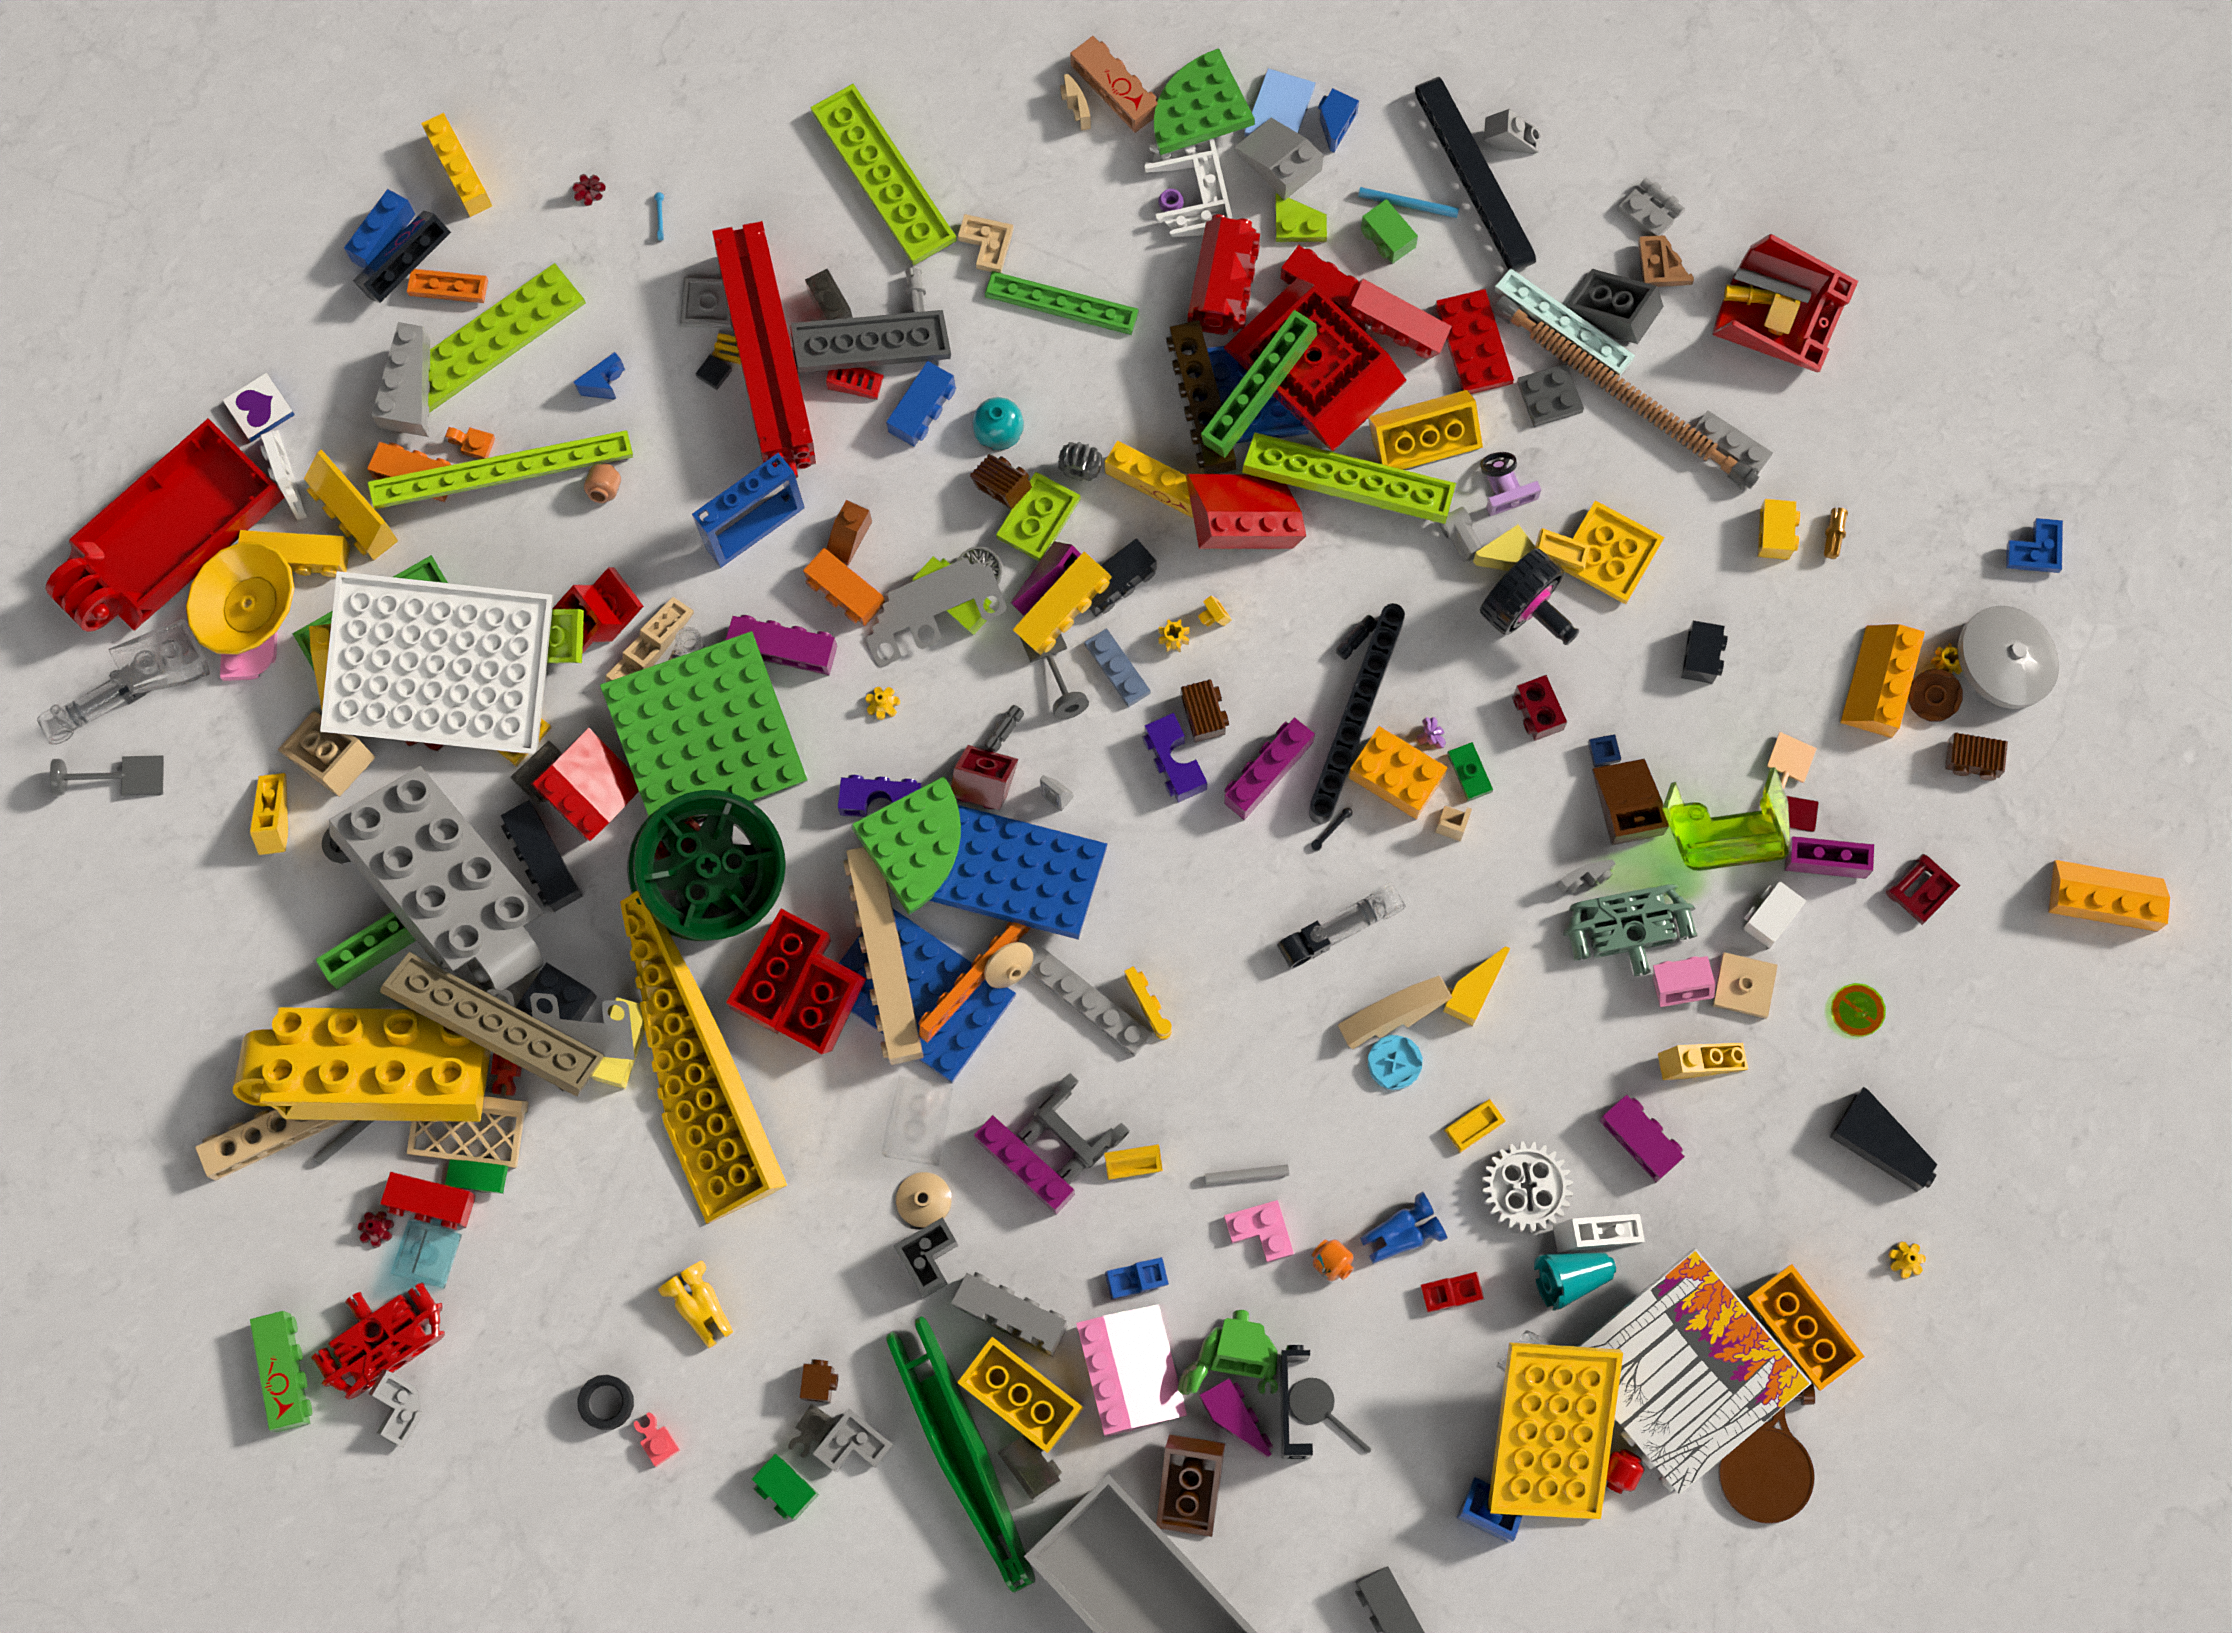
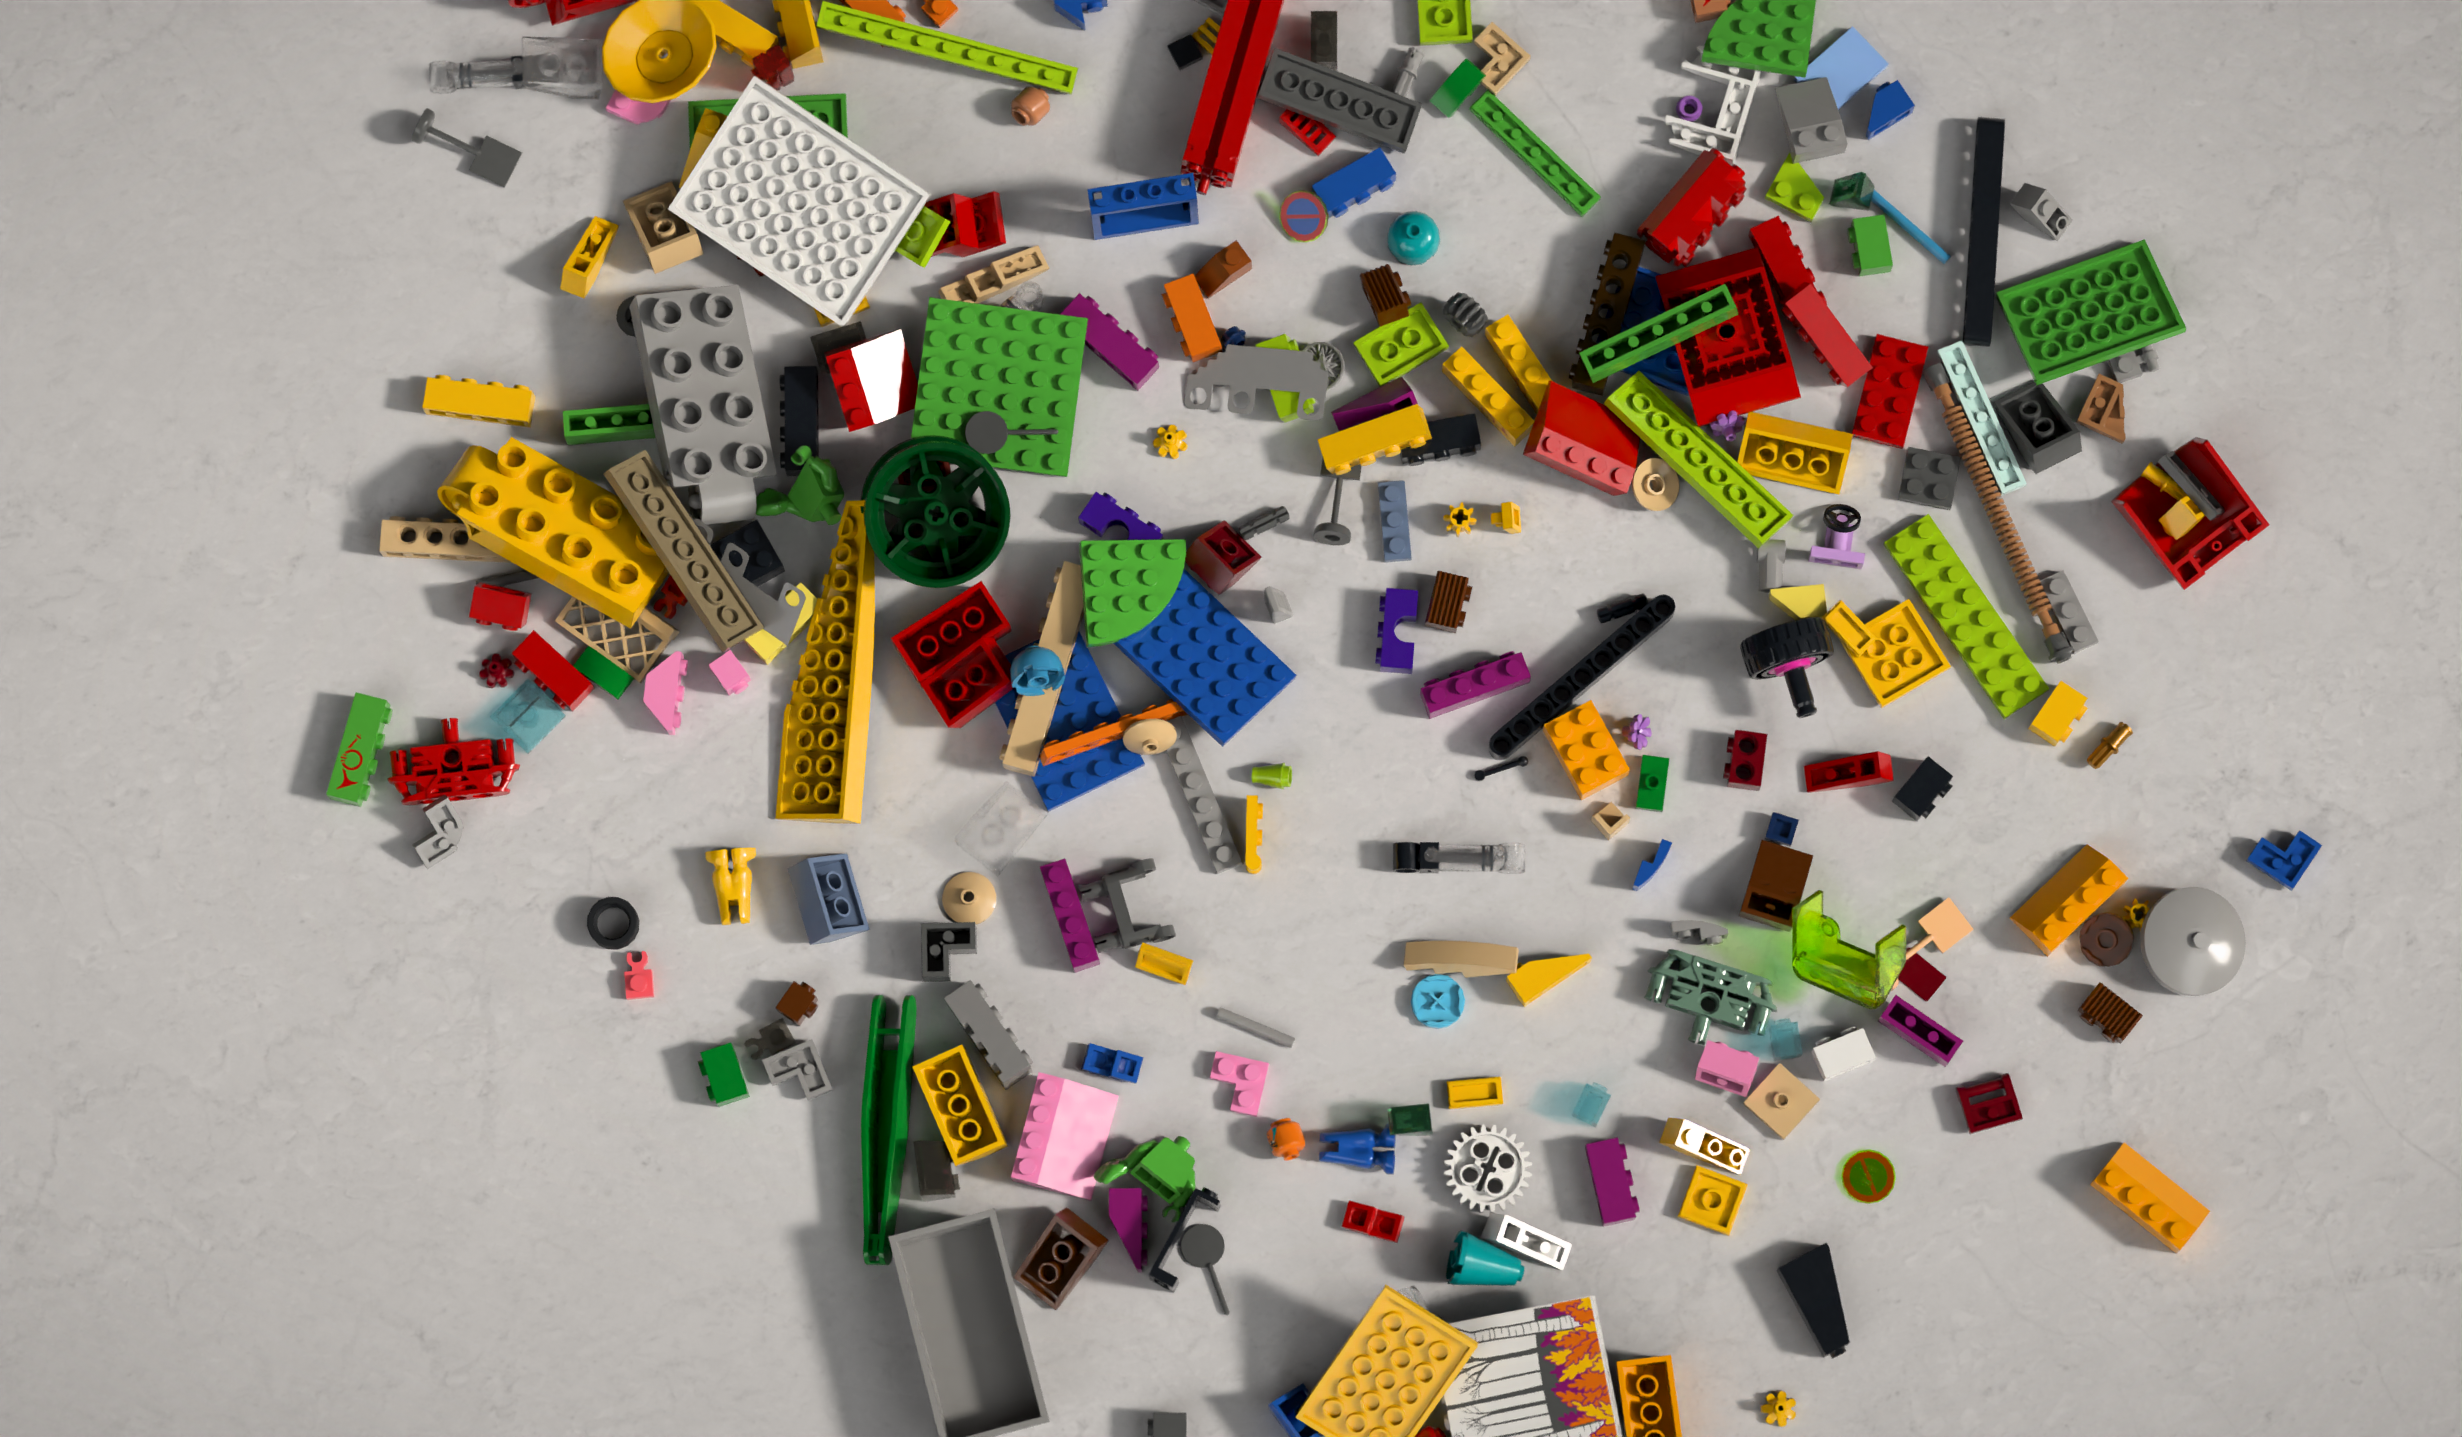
camera: 30 degrees right, 5 degrees up
(234, 993) = (479, 401): none -> yellow brick
(347, 1167) = (500, 606): none -> red brick
(354, 559) = (773, 68): none -> clear red brick
(542, 1163) = (664, 691): none -> bright pink slope
(587, 913) = (813, 495): none -> bright green torso
(594, 1114) = (730, 673): none -> bright pink brick
(719, 773) = (989, 432): none -> dark grey piece
(794, 1270) = (828, 898): none -> sand blue slope
(875, 959) = (1036, 670): none -> dark azure cylinder
(888, 583) = (1233, 336): none -> dark blue plate
(893, 452) = (1303, 216): none -> piece
(965, 281) = (1457, 88): none -> green slope
(1135, 942) = (1273, 775): none -> lime cone
(1138, 519) = (1487, 396): none -> yellow brick
(1324, 518) = (1664, 482): none -> tan dish
(1347, 196) = (1852, 192): none -> clear green slope
(1357, 438) = (1727, 425): none -> medium lavender plant
(1436, 1180) = (1410, 1120): none -> clear green slope
(1511, 847) = (1648, 870): none -> blue slope
(1584, 1078) = (1591, 1104): none -> clear light blue brick
(1603, 191) = (2090, 312): none -> bright green plate
(1632, 671) = (1849, 772): none -> red slope
(1650, 491) = (1966, 616): none -> lime plate
(1717, 929) = (1785, 1040): none -> clear light blue brick
(1738, 1105) = (1712, 1200): none -> yellow tile

